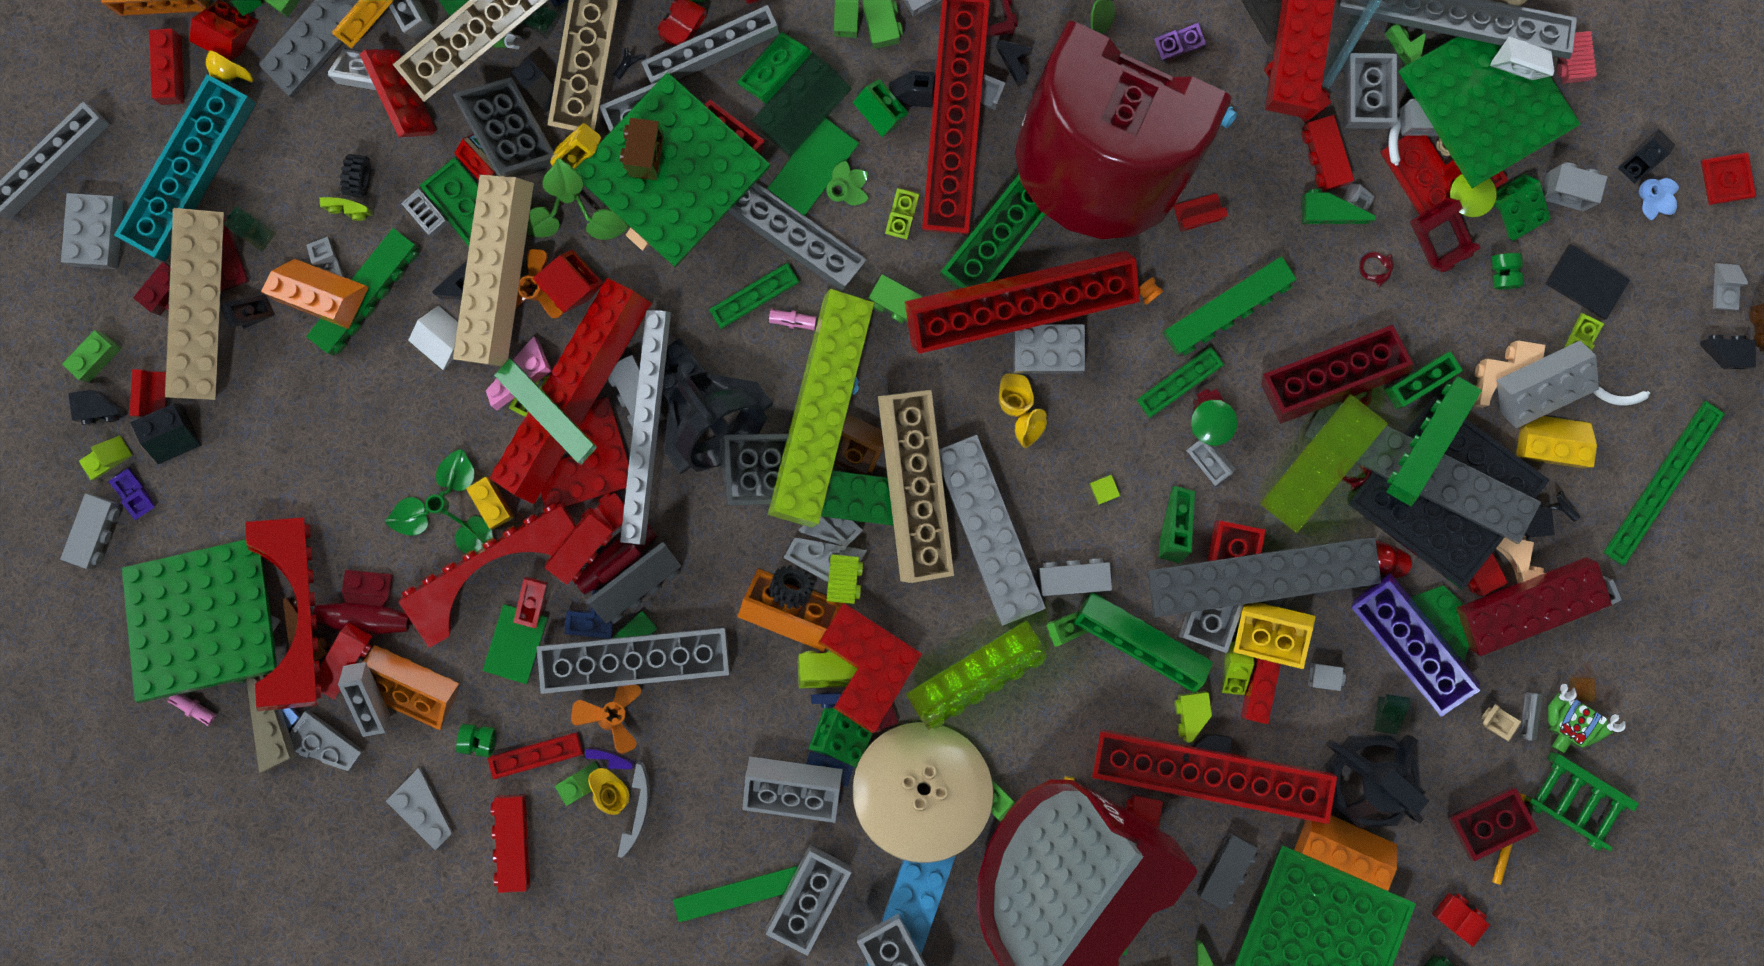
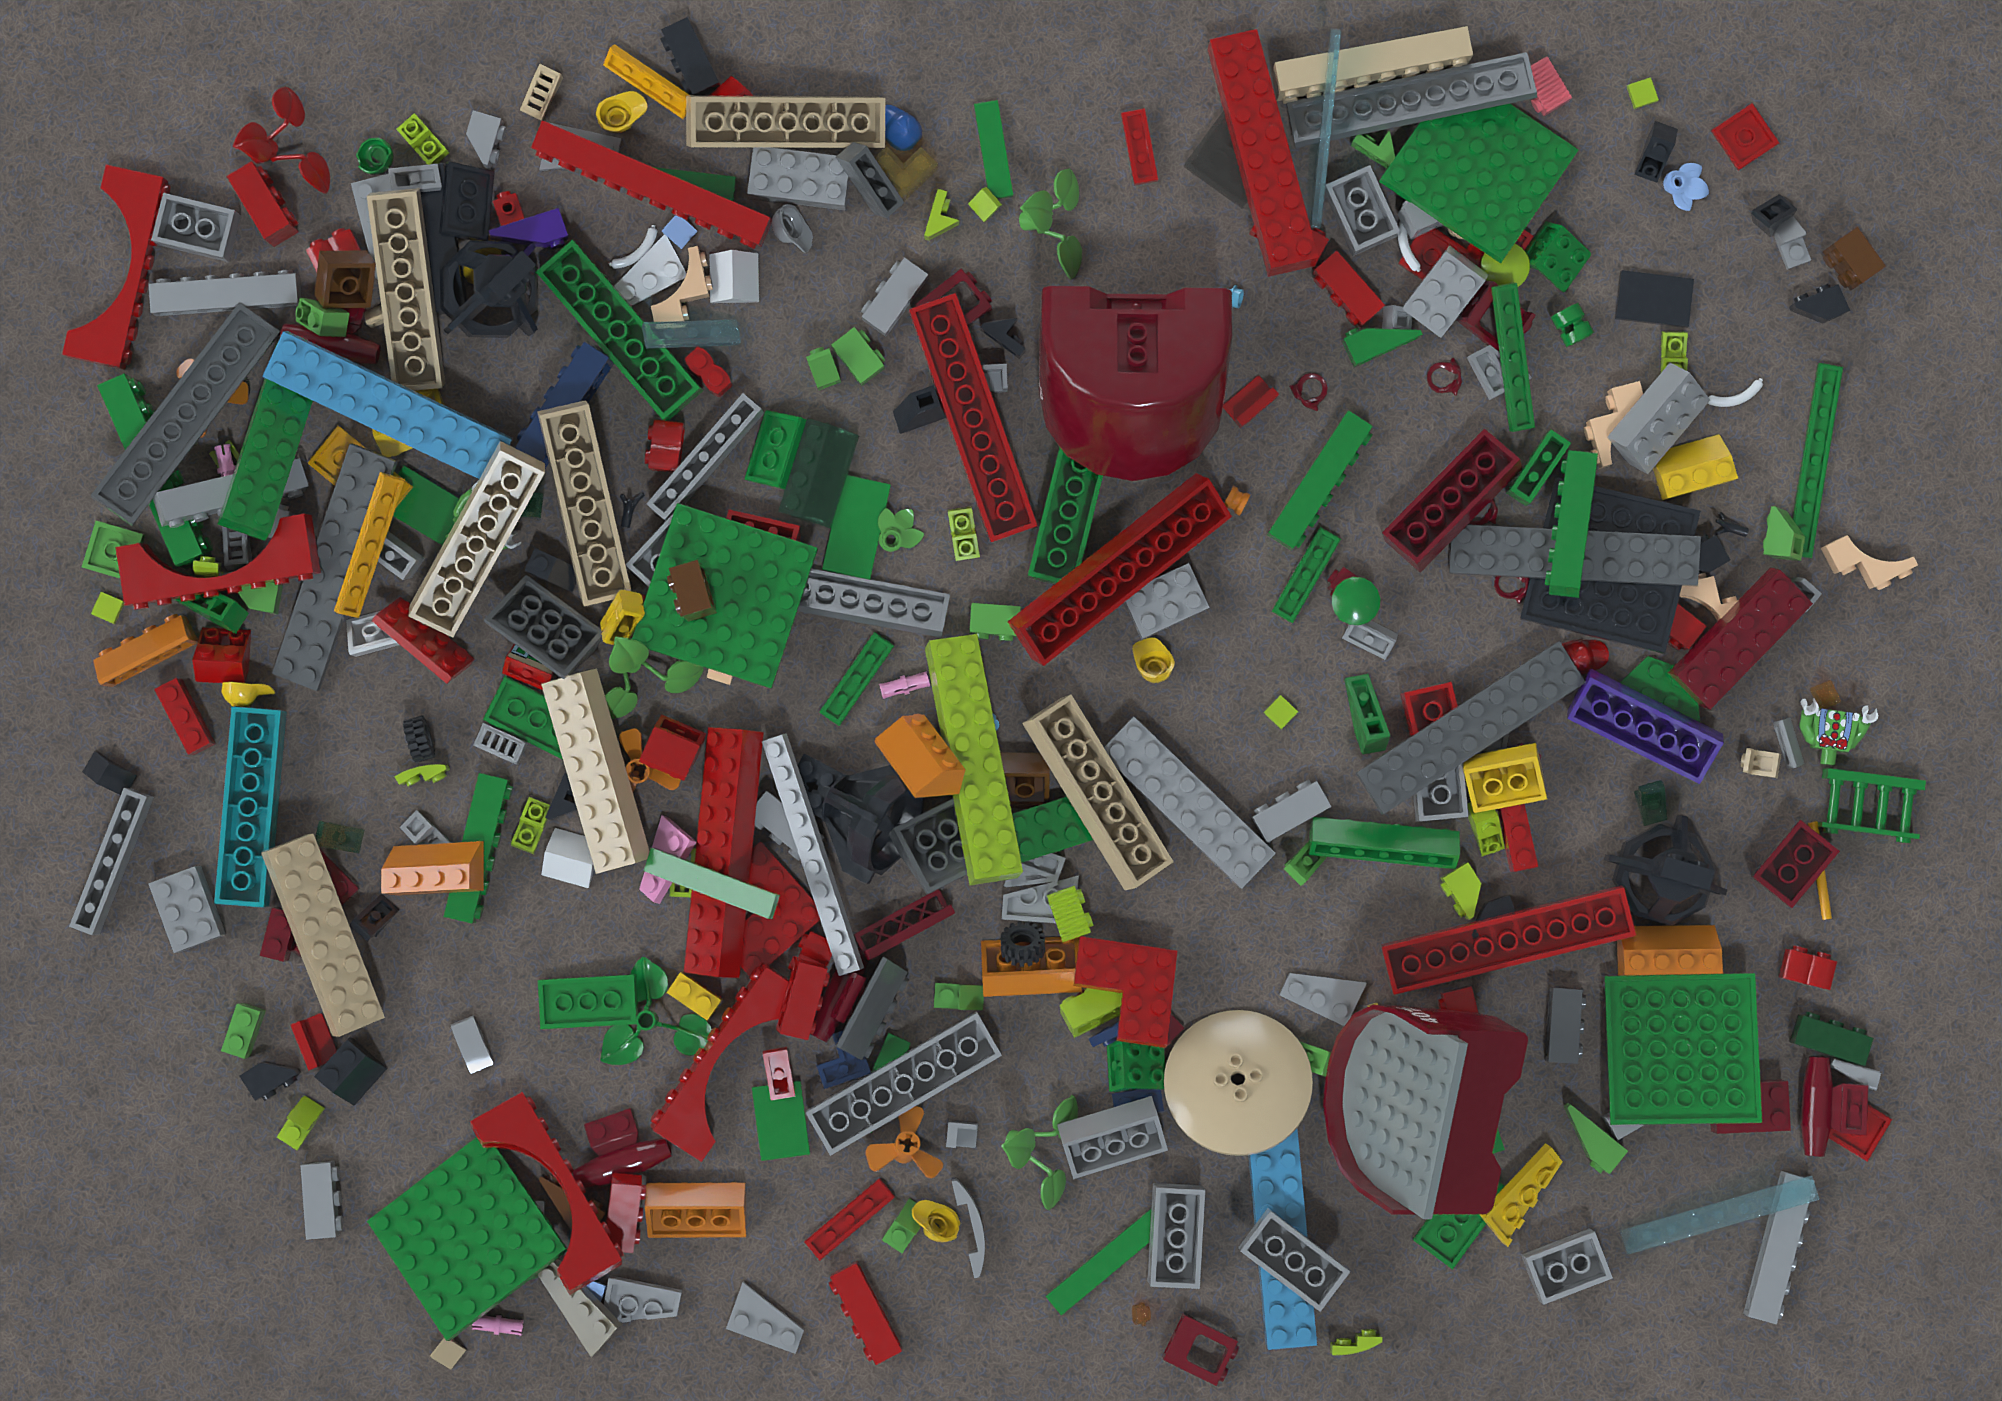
camera: 25 degrees left, 0 degrees up
(80, 86) = (108, 773): none -> black slope
(133, 493) = (343, 1145): dark purple slope -> none
(139, 713) = (448, 1353): none -> tan slope
(280, 457) = (472, 1044): none -> light grey slope
(364, 699) = (663, 1238): light grey brick -> none
(396, 466) = (587, 1001): none -> green plate
(418, 295) = (530, 826): none -> lime slope
(468, 737) = (778, 1232): green wheel -> none
(616, 760) = (930, 1187): dark purple slope -> none
(664, 726) = (961, 1134): none -> light grey panel
(691, 532) = (907, 933): none -> dark red fence
(710, 759) = (1021, 1144): none -> bright green plant
(716, 607) = (958, 996): none -> bright green slope
(747, 953) = (1141, 1314): none -> clear orange plate
(776, 385) = (921, 757): none -> orange slope
(880, 107) = (896, 441): green brick -> none
(977, 676) = (1240, 947): clear neon green brick -> none
(1030, 427) = (1181, 685): yellow piece -> none
(1030, 750) = (1324, 995): none -> light grey wing
(1180, 42) = (1156, 244): medium lavender slope -> none
(1253, 238) = (1313, 402): none -> dark red piece
(1323, 463) = (1478, 592): clear neon green brick -> none
(1326, 677) = (1574, 795): light grey brick -> none
(1412, 191) = (1445, 291): none -> light grey brick
(1422, 282) = (1488, 369): none -> light grey wing
(1445, 274) = (1513, 357): none -> green tile
(1524, 59) = (1494, 116): white slope -> none
(1574, 186) = (1598, 216): light grey brick -> none
(1608, 537) = (1783, 536): none -> bright green slope
(1655, 578) = (1843, 556): none -> light nougat arch
(1656, 101) = (1642, 93): none -> lime tile
(1721, 254) = (1772, 214): none -> black slope

